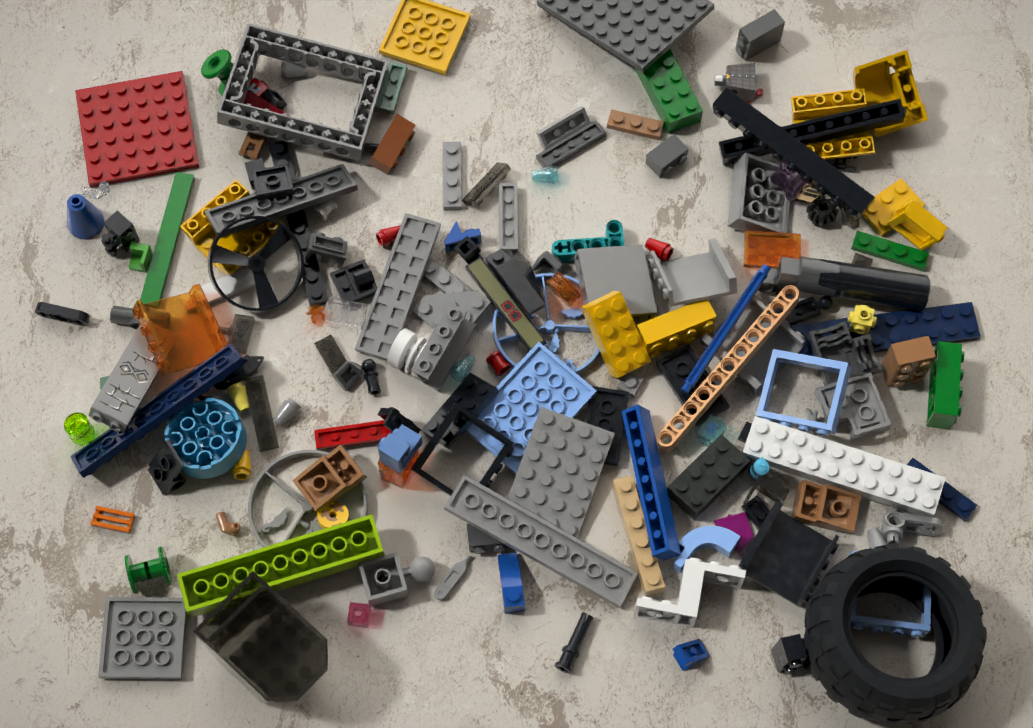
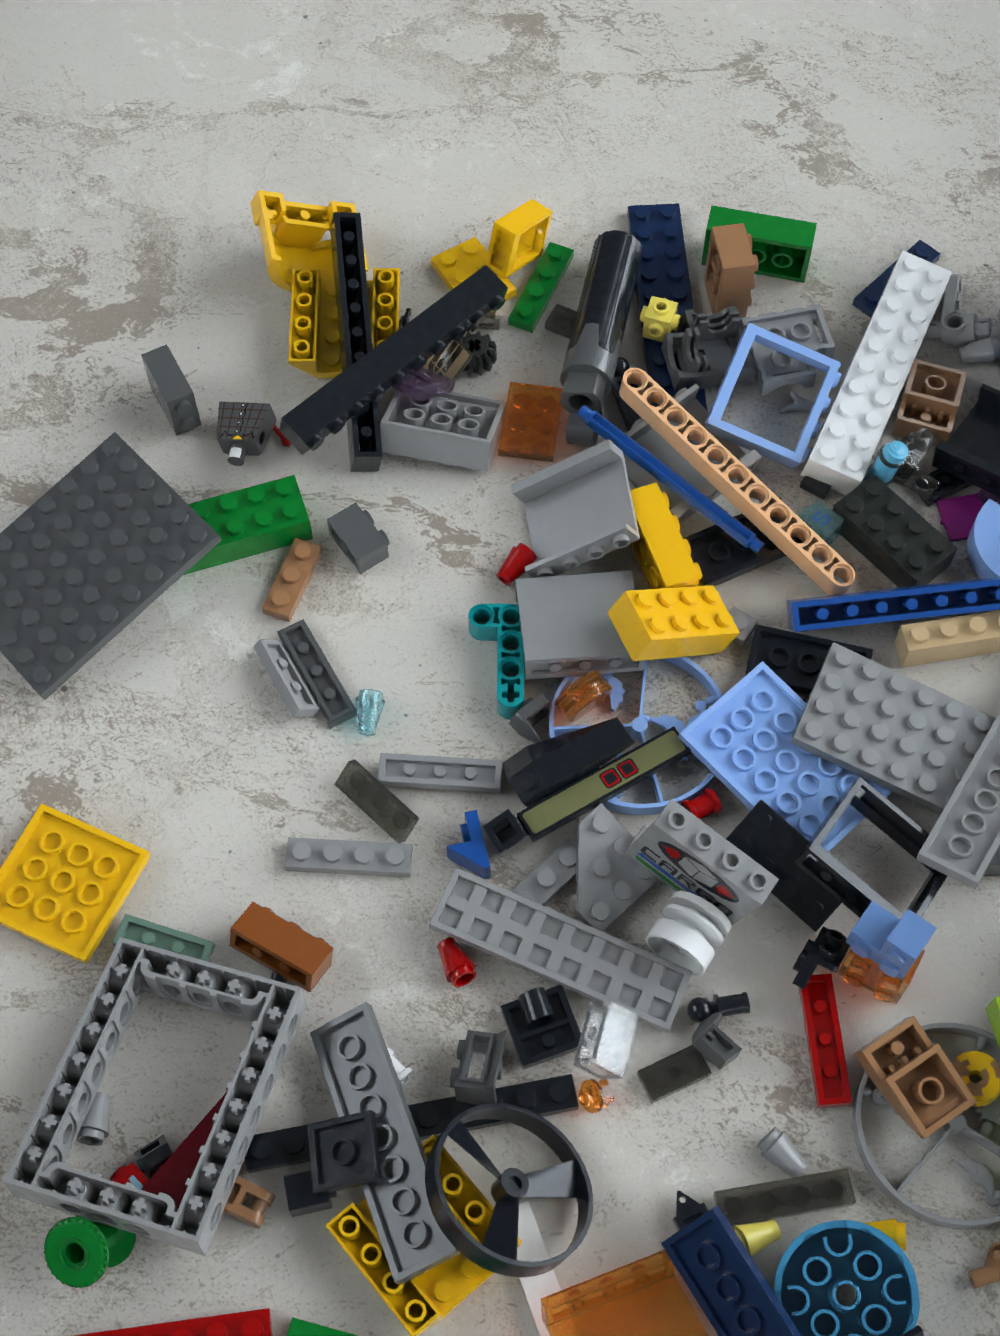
camera: 85 degrees left, 5 degrees down
(239, 332) = (628, 1234): clear smoke plate -> none

